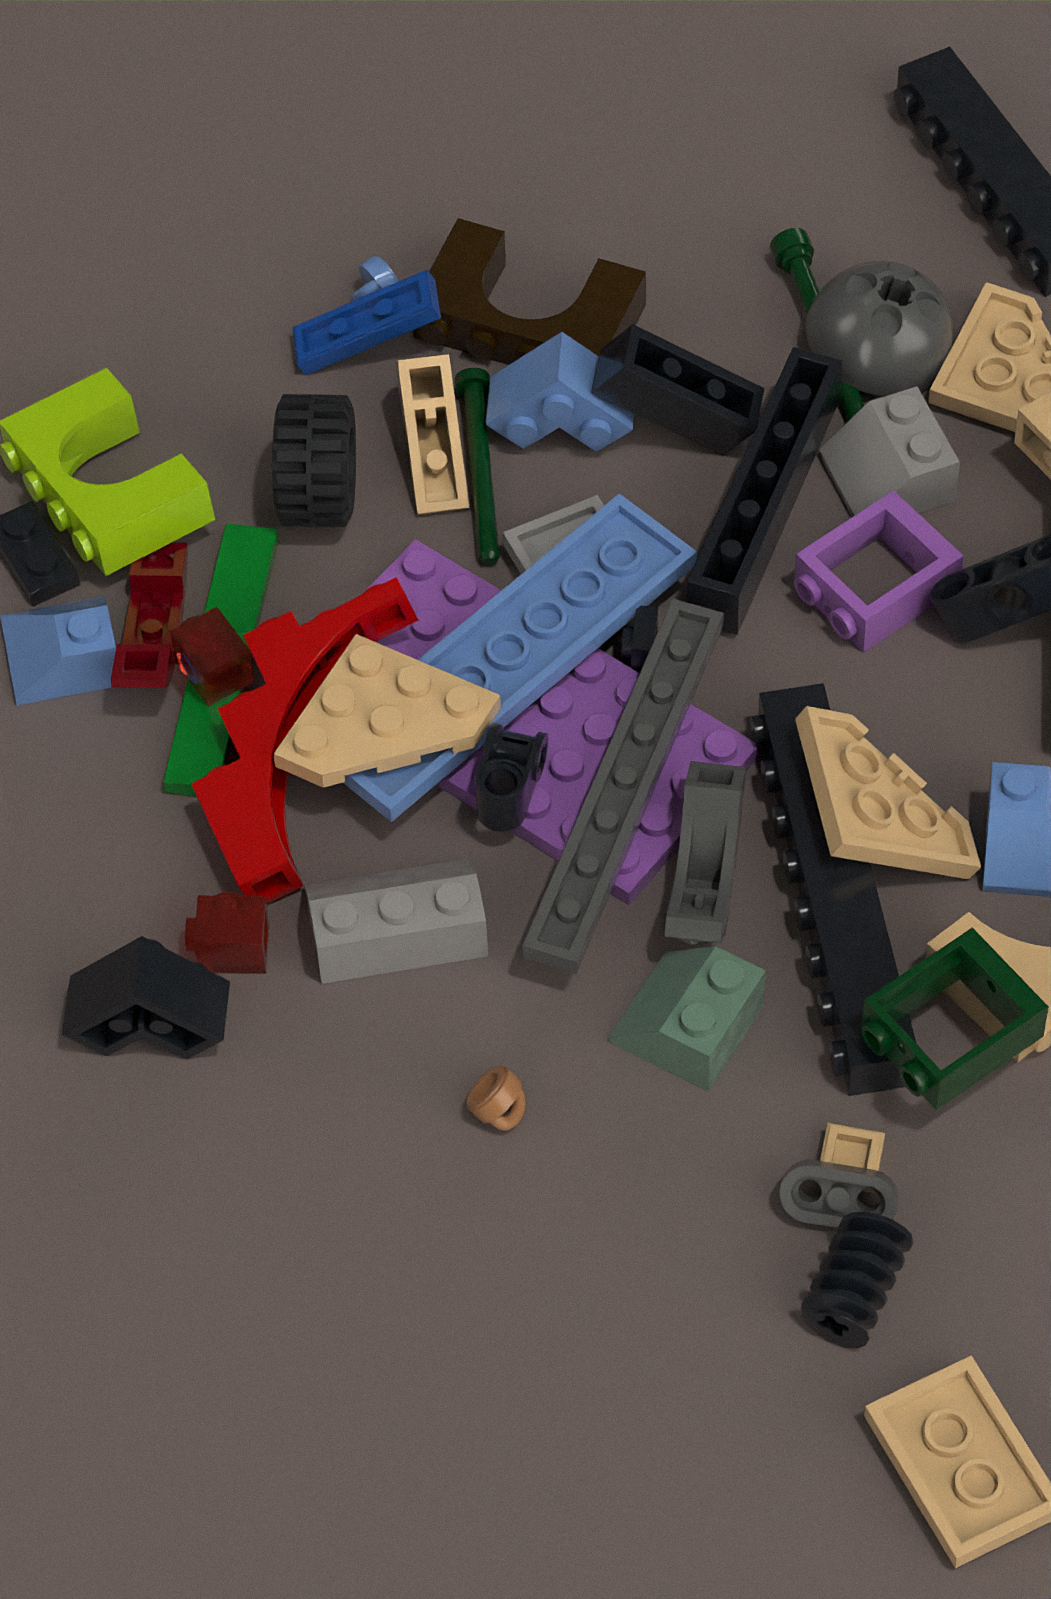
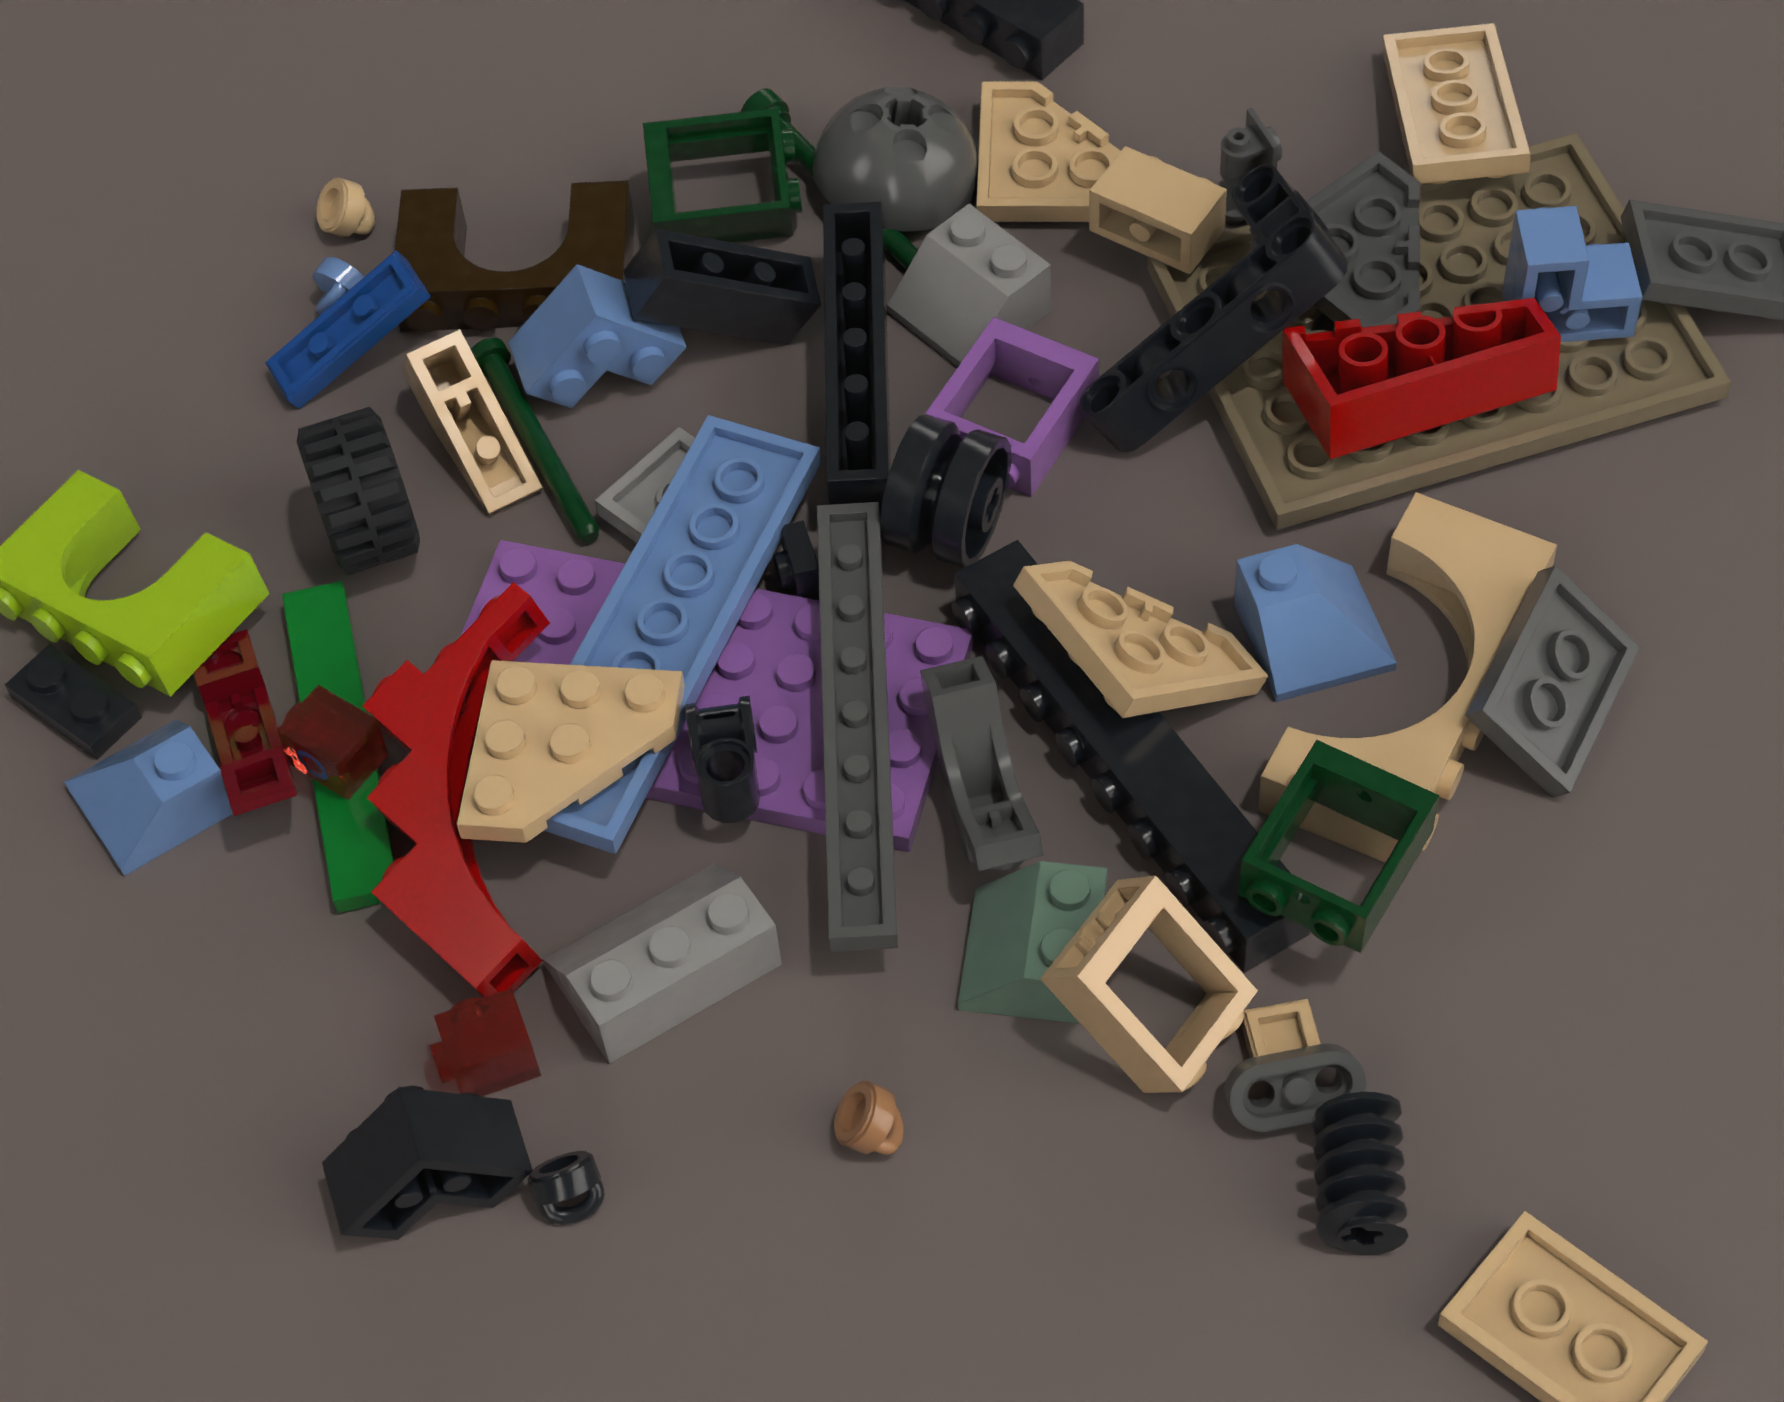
camera: 20 degrees left, 0 degrees up
(246, 1055) = (564, 1179): none -> black tile
(408, 215) = (344, 209): none -> tan tile
(728, 1023) = (1099, 947): none -> tan window
(732, 256) = (717, 137): none -> dark green window
(783, 622) = (945, 490): none -> black wheel

